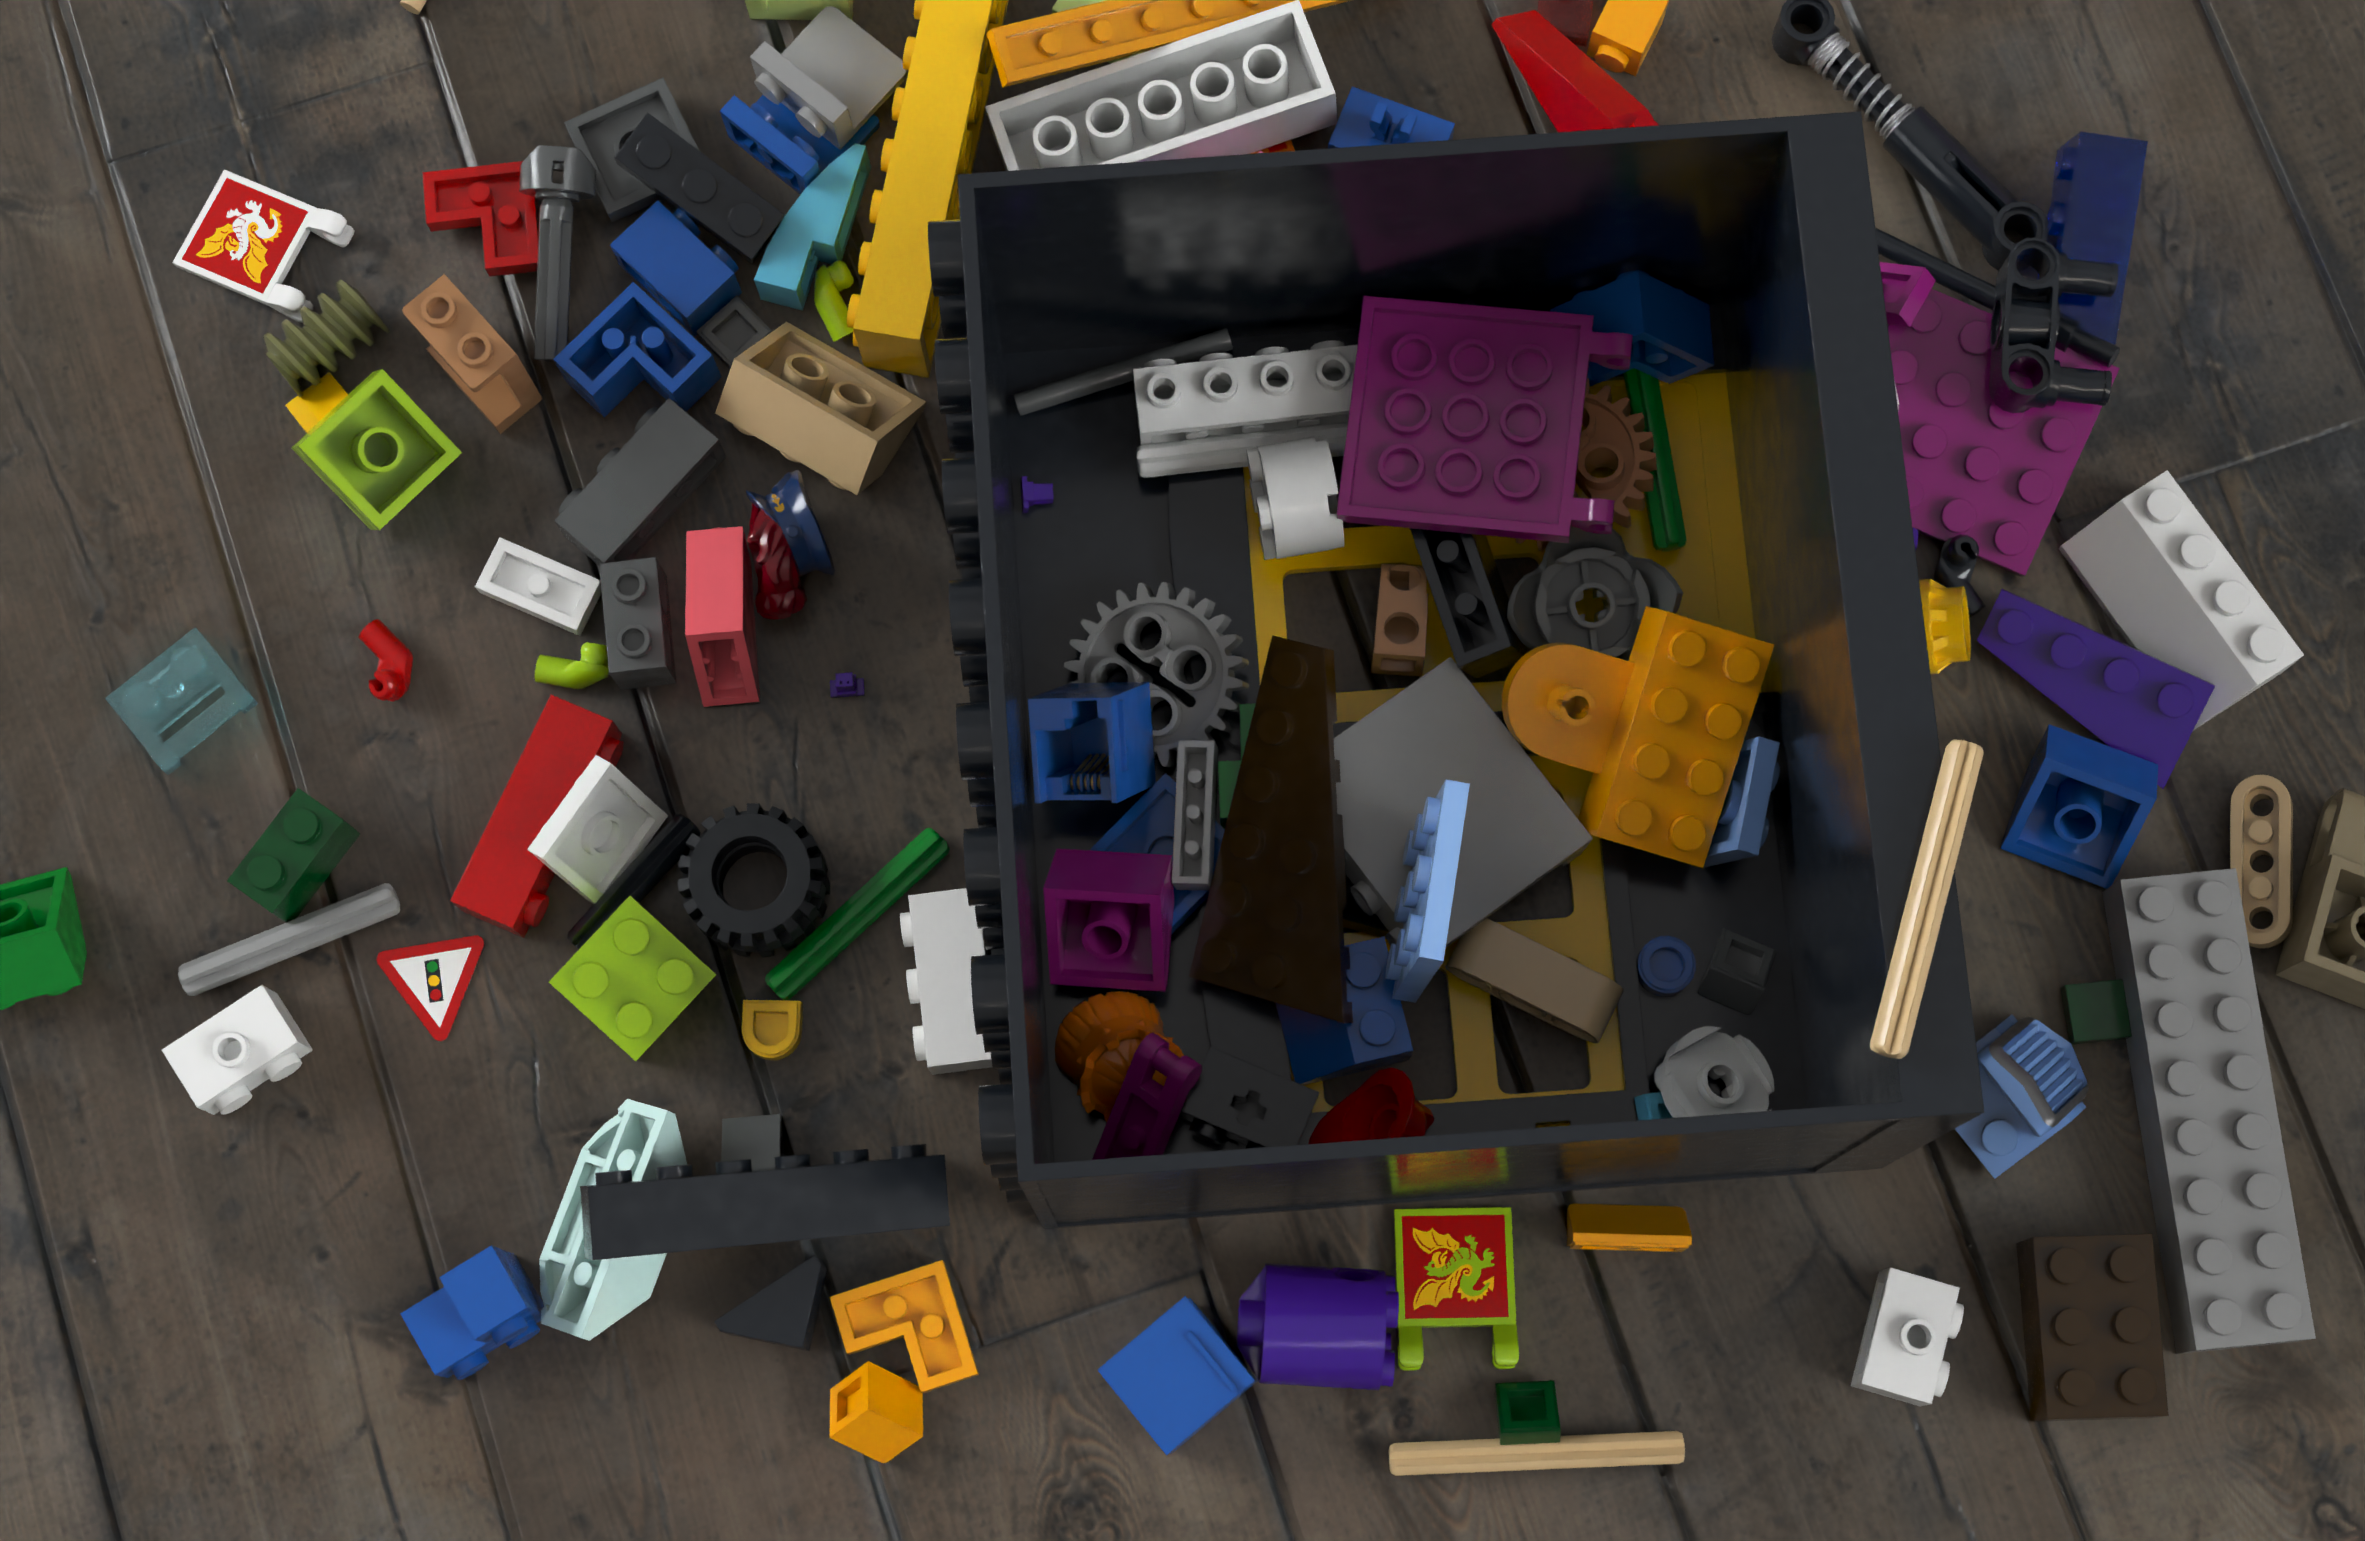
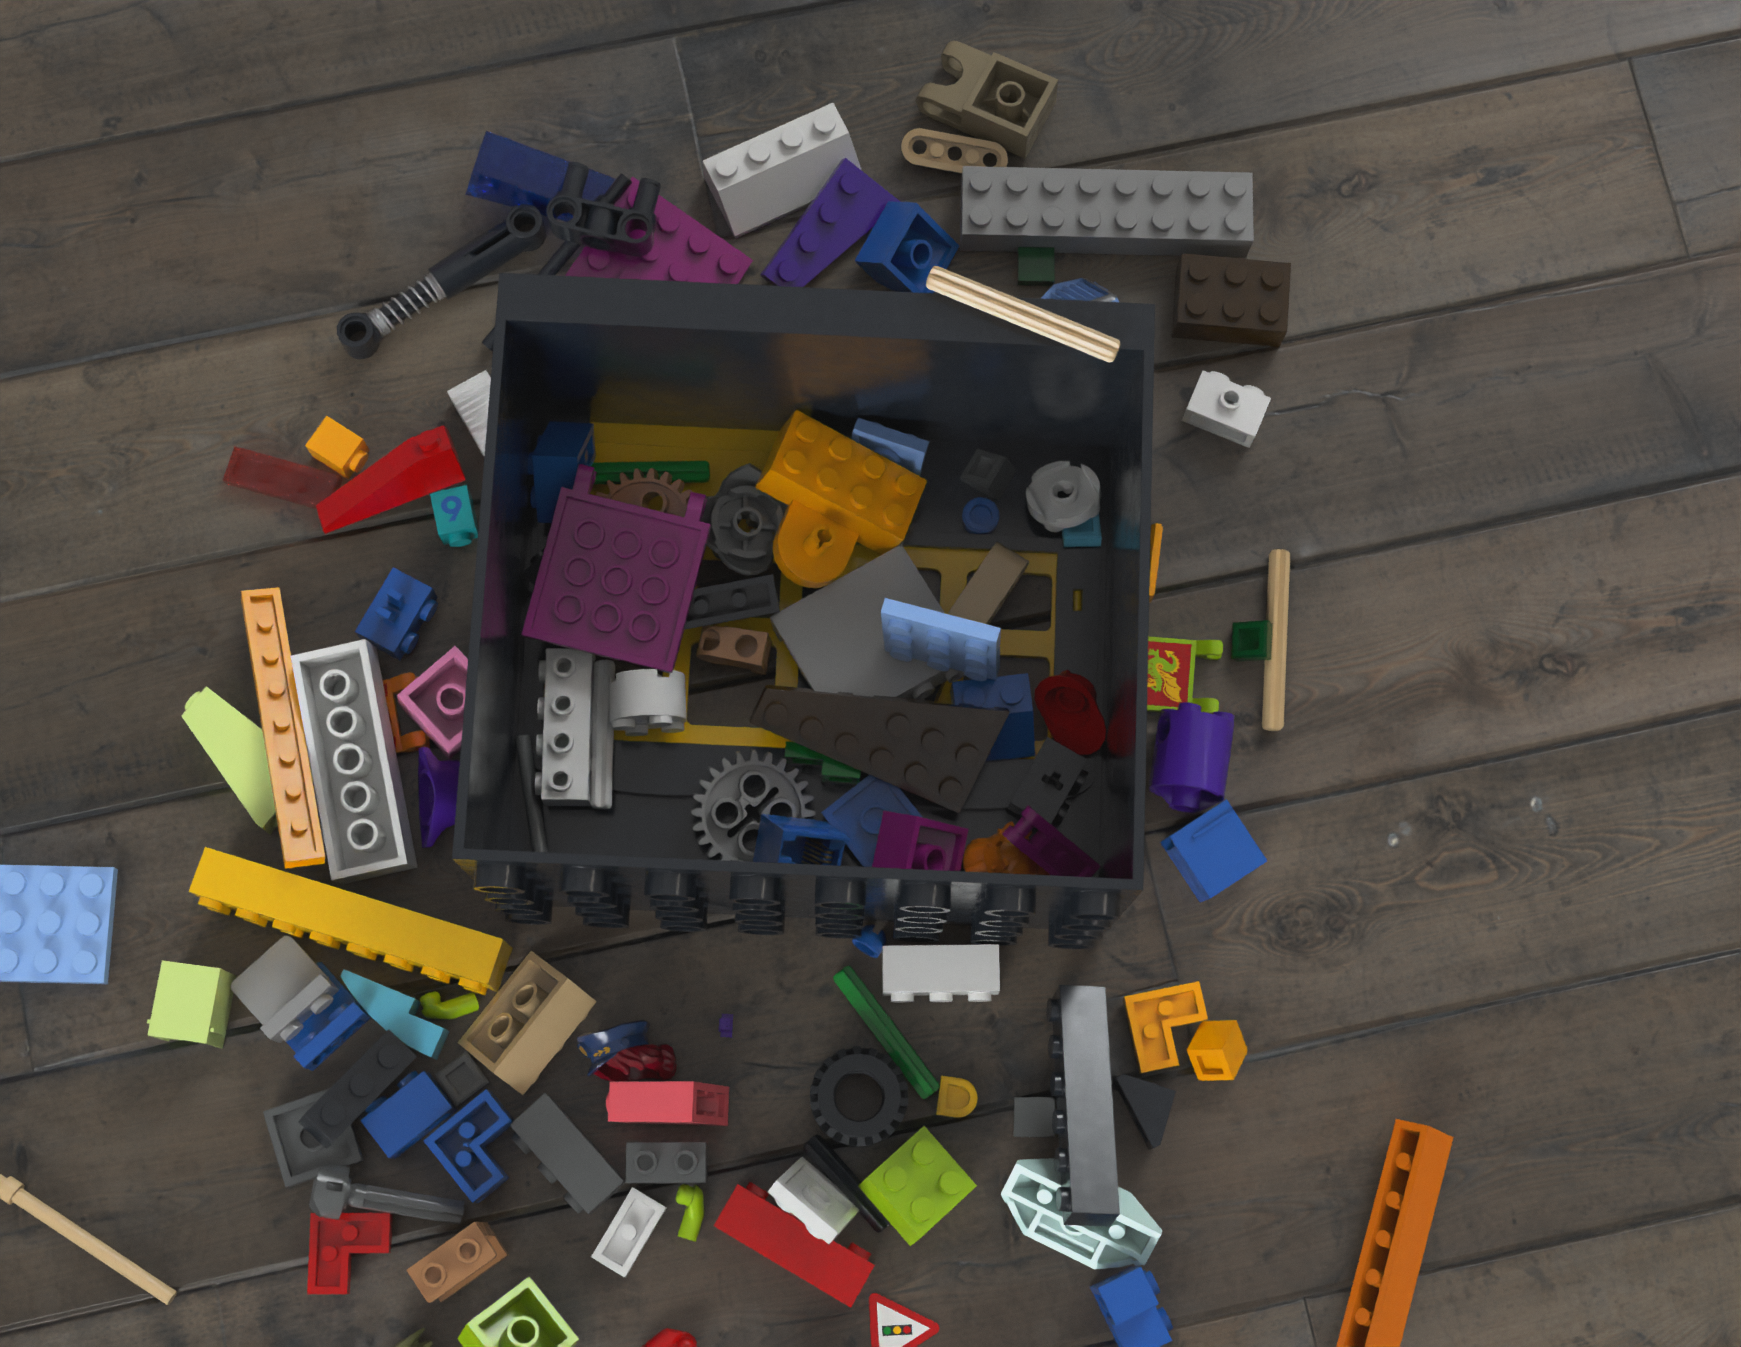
camera: 90 degrees left, 0 degrees up
(1195, 815) = (855, 794): light grey piece -> none

